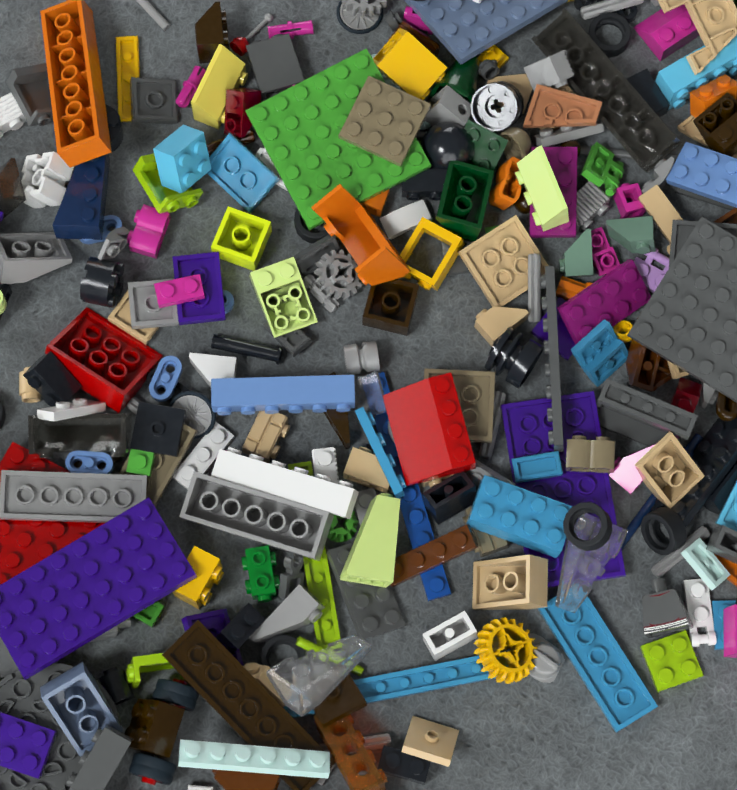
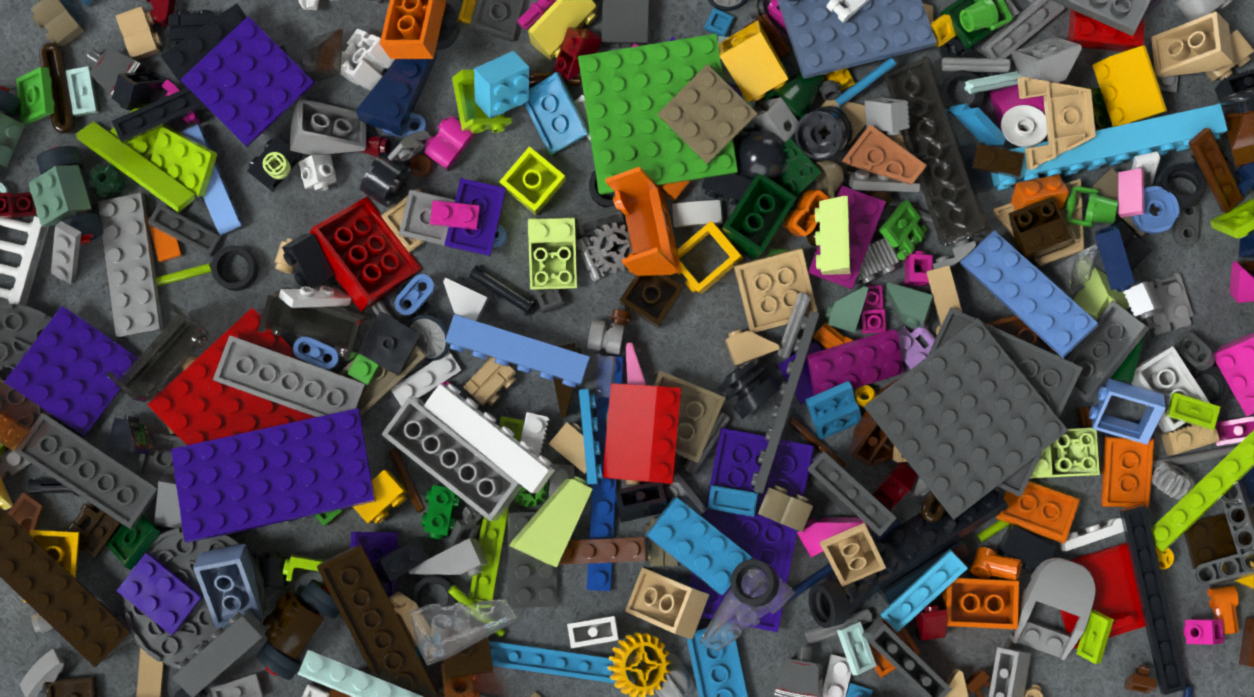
camera: 20 degrees right, 10 degrees up
(33, 297) = (317, 172): none -> white brick
(80, 257) = (377, 145): none -> dark red cone
(130, 260) = (421, 165): none -> reddish brown tile
(212, 549) = (407, 481): none -> reddish brown bar
(363, 41) = (718, 22): none -> dark azure tile
(368, 334) = (620, 317): none -> reddish brown plate
(396, 374) = (634, 371): none -> bright pink slope
(521, 46) = (866, 81): none -> dark azure bar
(581, 384) = (815, 441): none -> reddish brown bar
(634, 14) = (992, 82): none -> light aqua axle
(635, 53) = (978, 124): none -> dark azure slope
(666, 75) = (998, 161): none -> dark brown plate
(677, 39) = (1024, 117): none -> white dish

